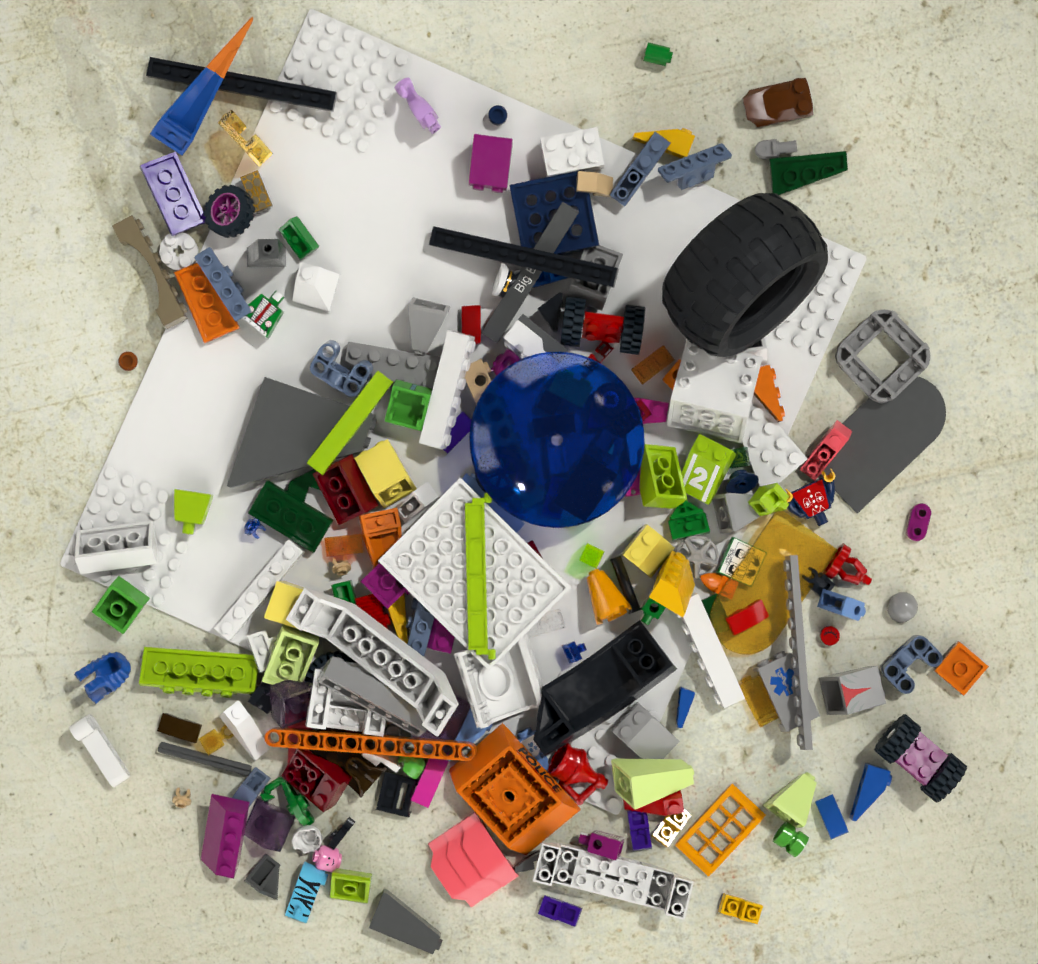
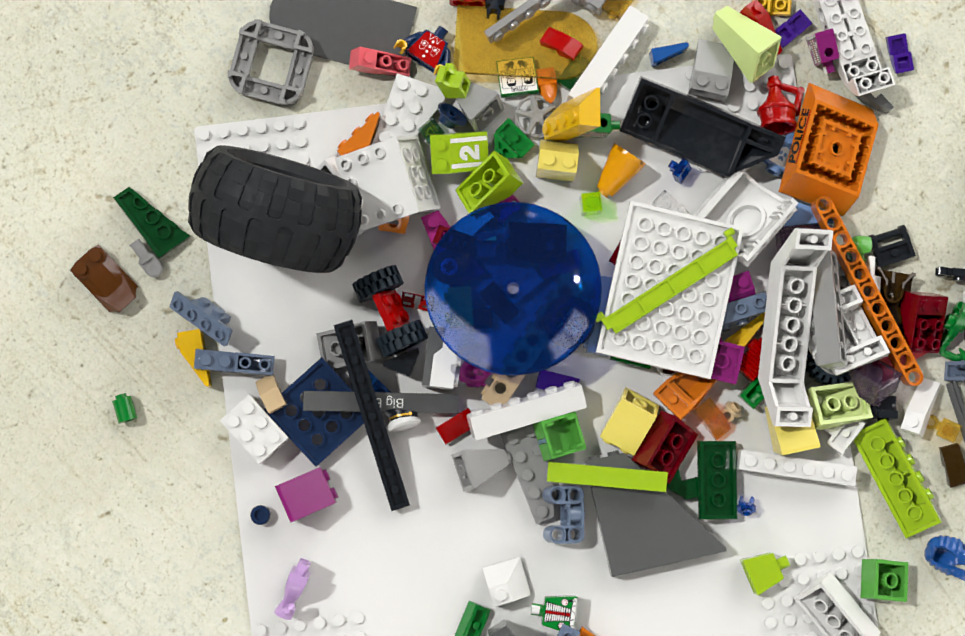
camera: 130 degrees left, 5 degrees down
(416, 502) = (637, 379): white slope -> none
(429, 781) = (866, 224): dark pink slope -> none
(470, 861) = (907, 152): coral slope -> none
(625, 583) = (596, 161): black pin -> none
(652, 364) = (396, 250): clear orange slope -> none

